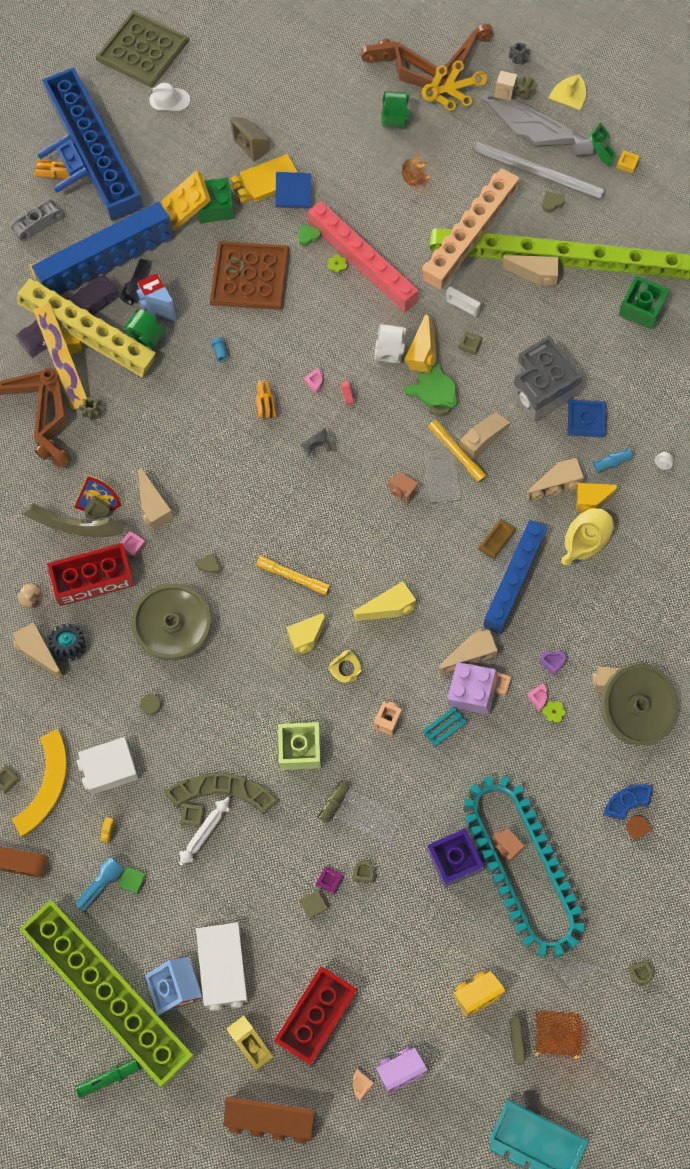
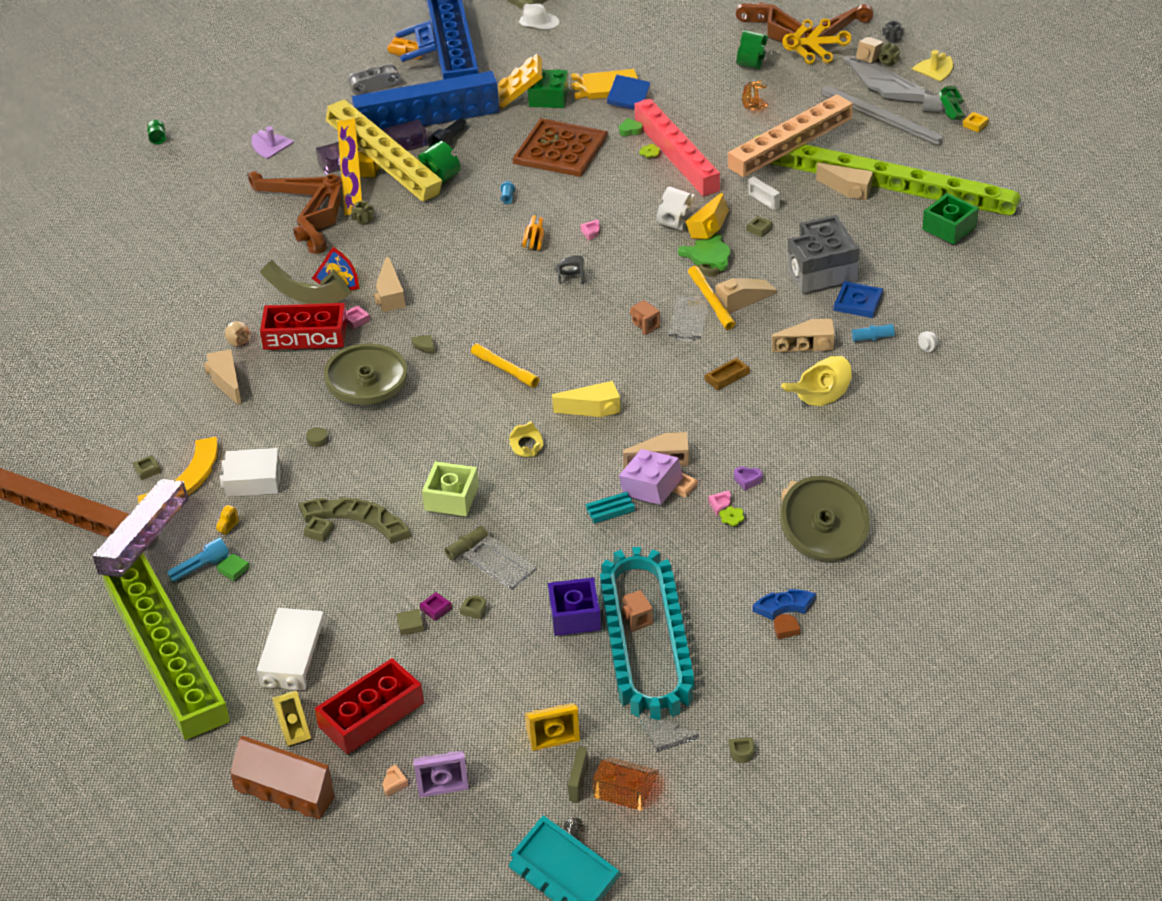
camera: 15 degrees right, 25 degrees down
(38, 874) = (140, 528): none -> clear purple brick
(66, 642) = (256, 373): black wheel -> none
(107, 1078) = (142, 715): green pin -> none
(155, 298) = (461, 141): light blue slope -> none
(173, 985) = (235, 653): light blue slope -> none
(204, 831) = (324, 542): white wheel -> none
(249, 138) = (601, 51): dark tan slope -> none
(306, 633) = (498, 407): light yellow slope -> none
(347, 392) = (619, 240): coral tile -> none
(387, 709) = (551, 486): light nougat brick -> none
(515, 577) = (732, 401): blue brick -> none
(552, 201) = (885, 138): olive tile -> none
(593, 495) = (853, 352): yellow slope -> none

